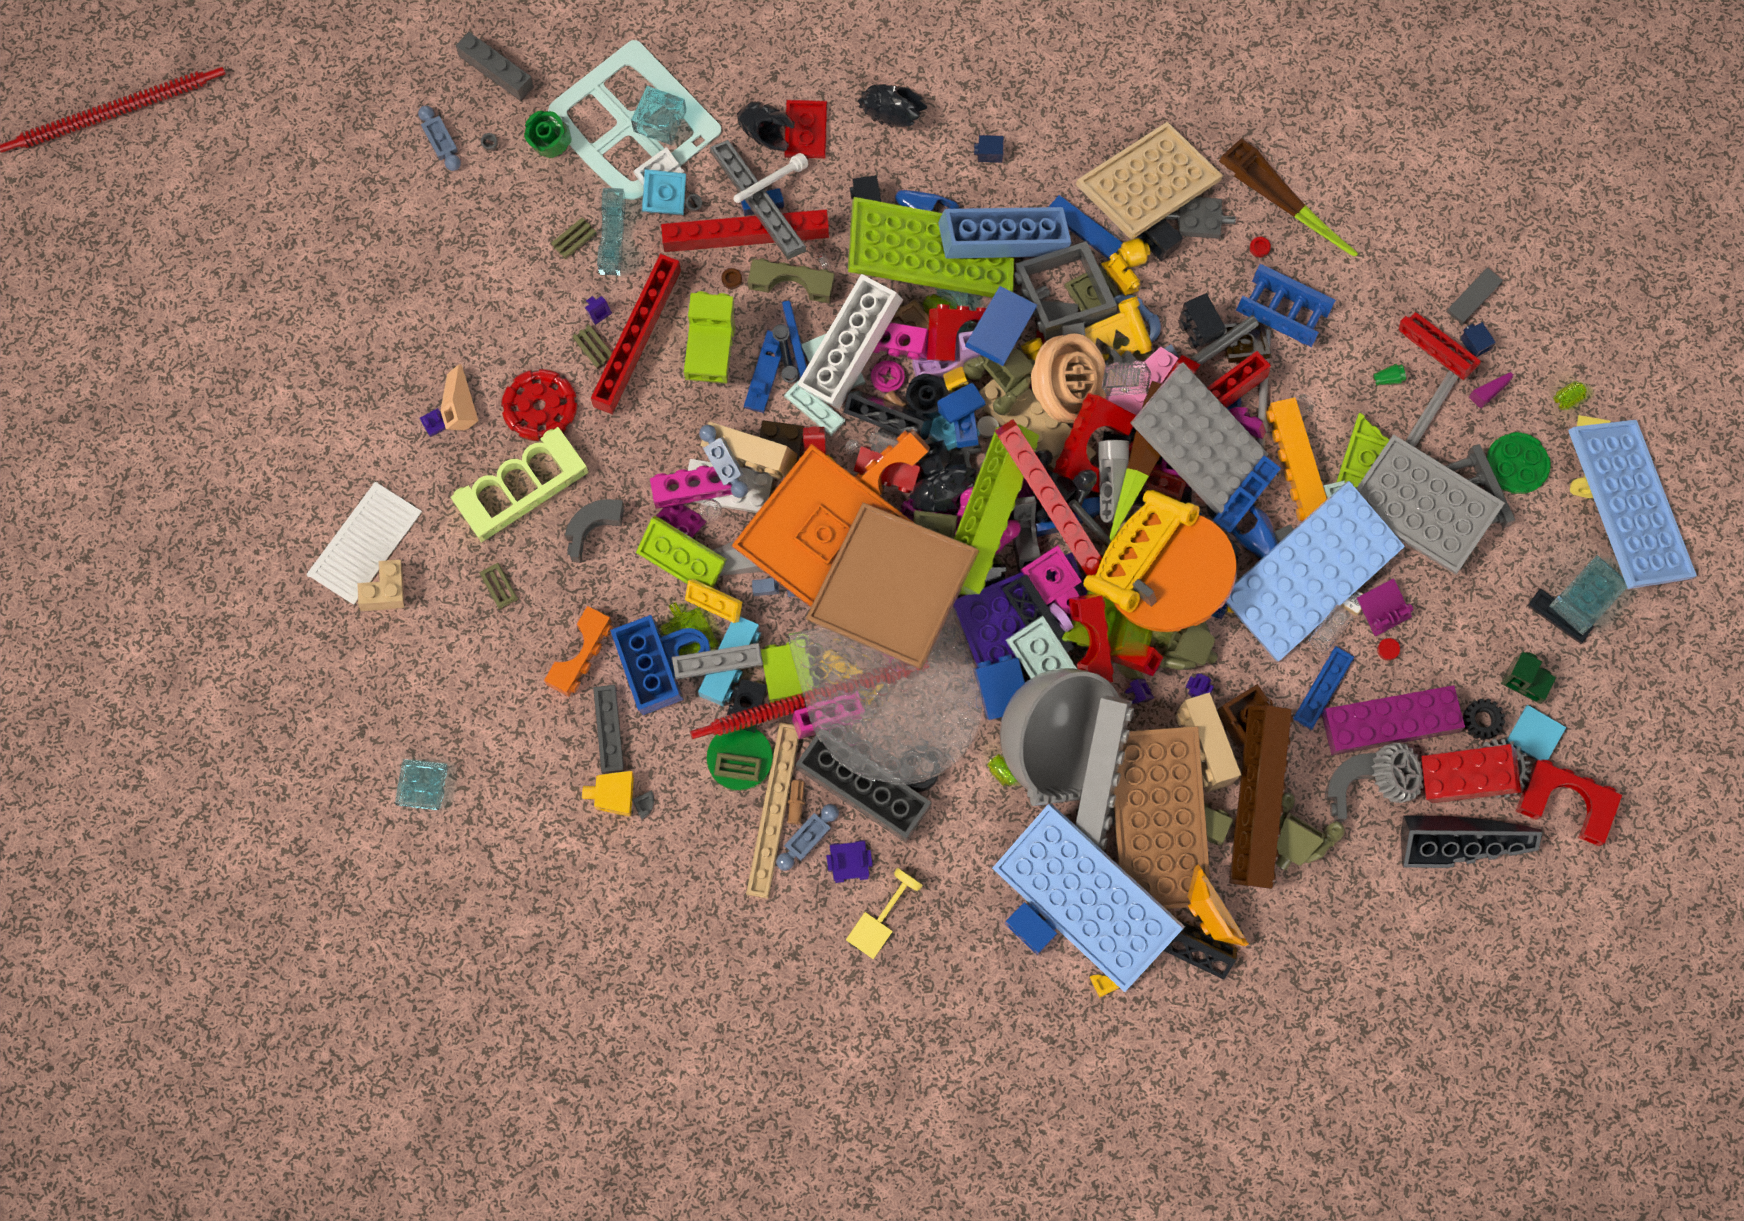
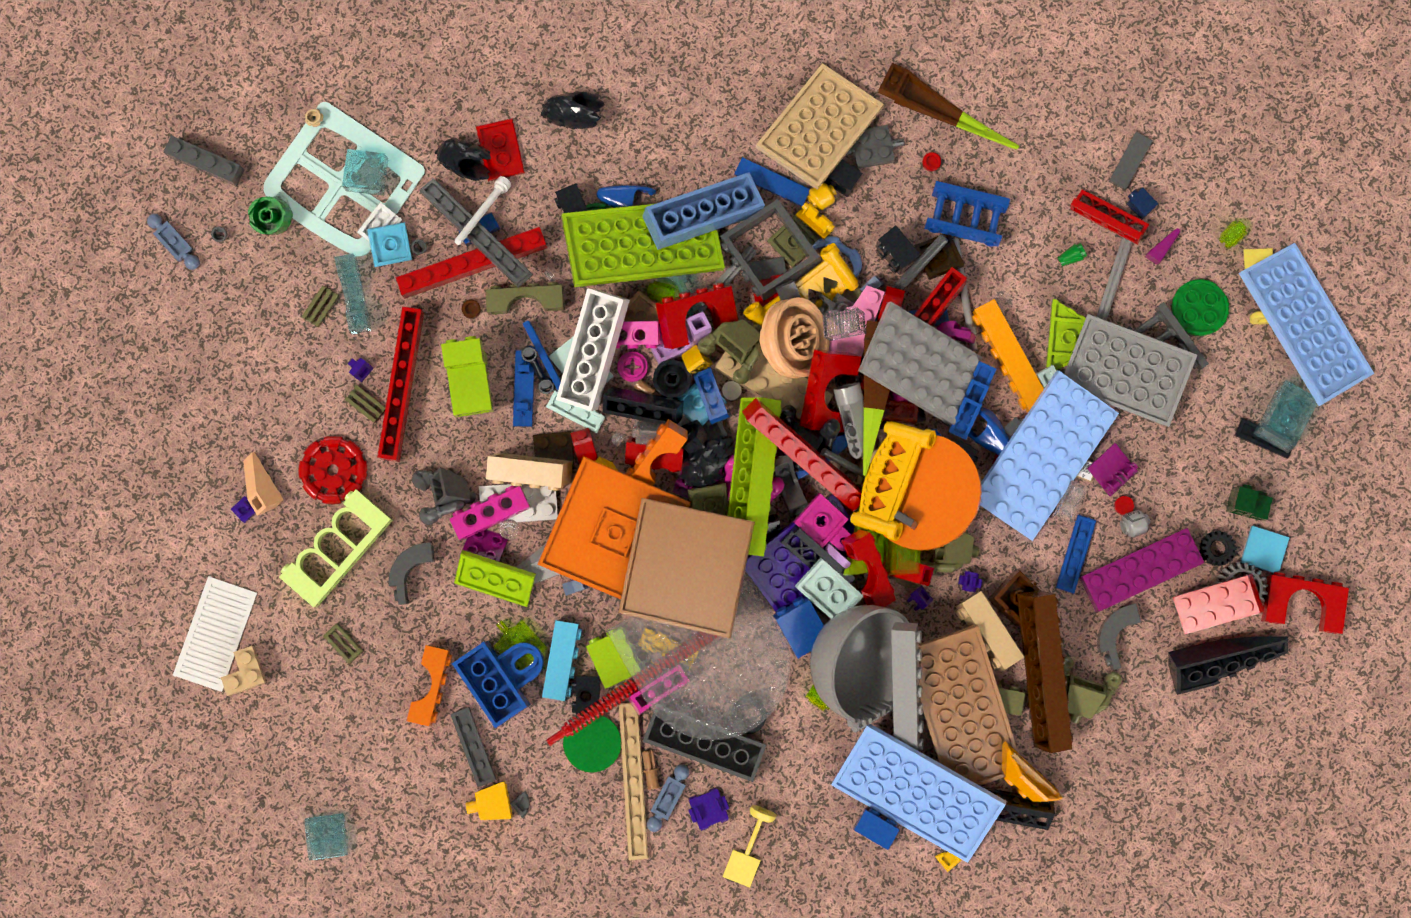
camera: 10 degrees left, 10 degrees up
(620, 46) = (310, 114): none -> tan plate
(656, 452) = (448, 491): none -> dark grey torso
(713, 600) = (533, 613): yellow tile -> none
(717, 661) = (551, 667): light grey tile -> none
(723, 461) = (510, 489): sand blue plate -> none
(756, 769) = (609, 751): olive tile -> none
(960, 403) = (704, 381): blue slope -> none
(989, 148) = (669, 129): dark blue brick -> none
(1001, 326) = (722, 304): blue tile -> none
(1396, 669) = (1135, 523): none -> light grey head
(1398, 772) = (1155, 617): light grey gear -> none

